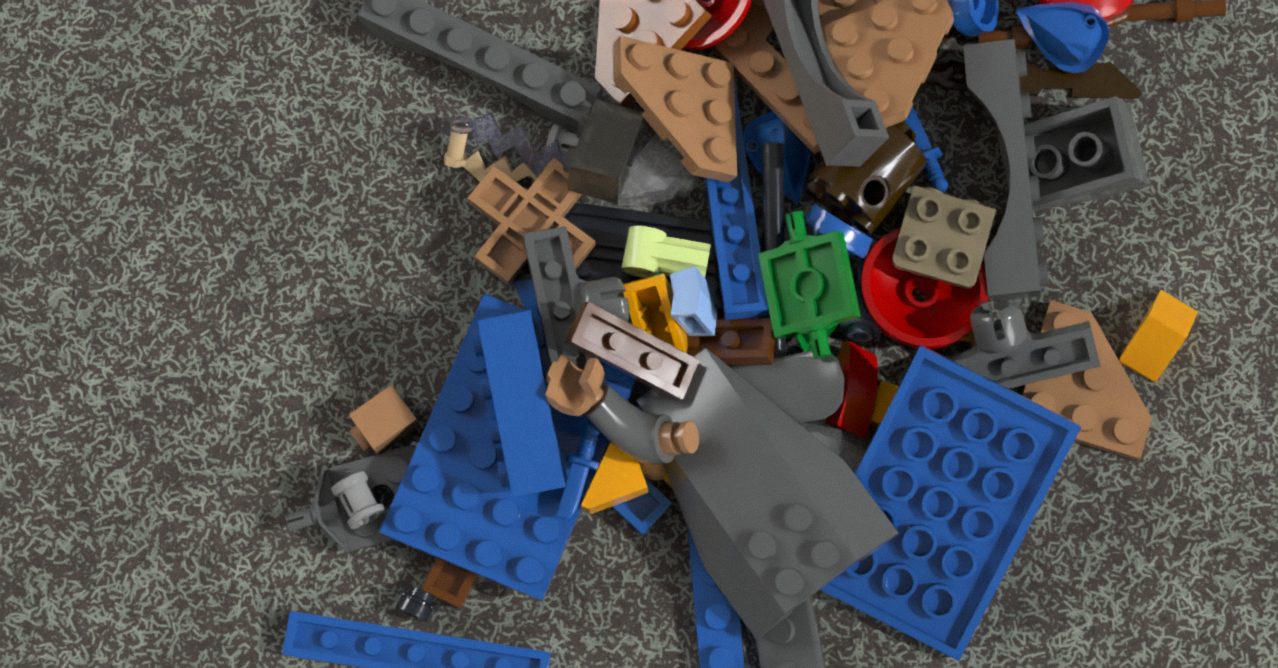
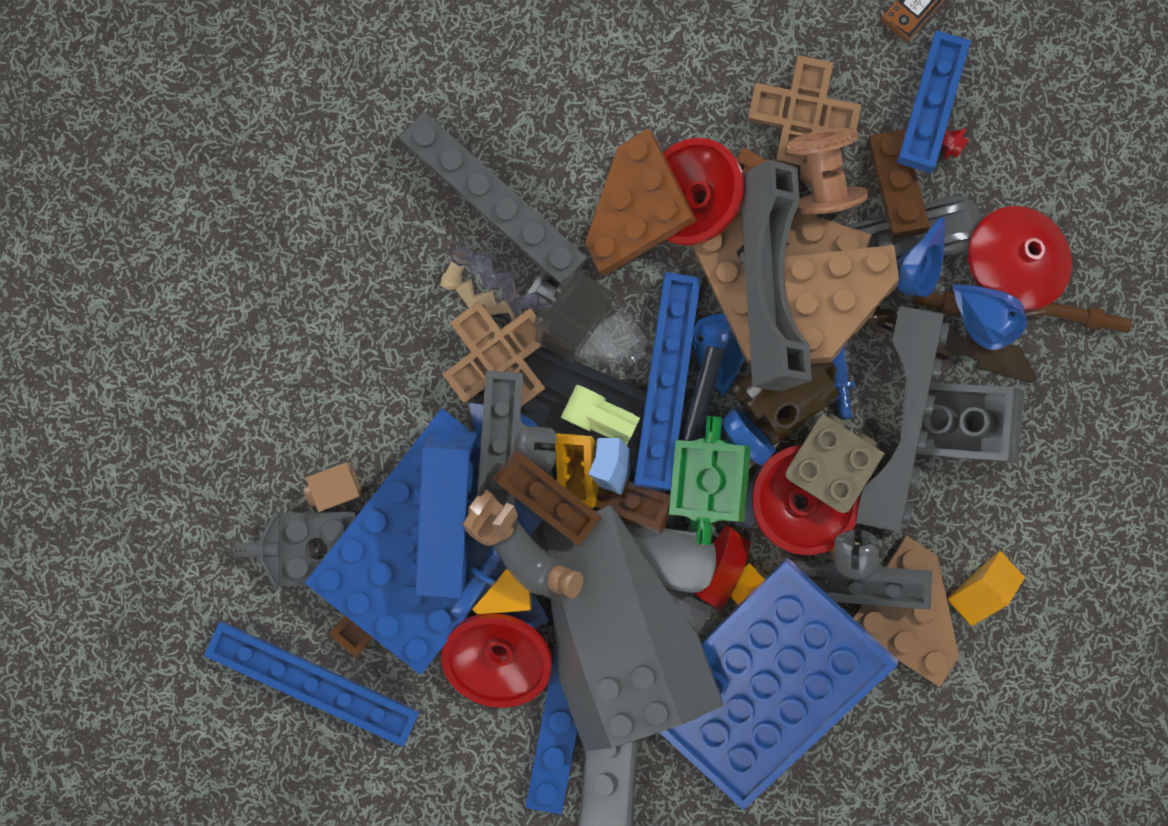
camera: 10 degrees right, 10 degrees up
(358, 500) = (294, 550): light grey bush -> none
(416, 603) = (321, 643): black plate -> none
(628, 586) = (492, 673): none -> red dish
(683, 100) = (651, 291): medium nougat plate -> none

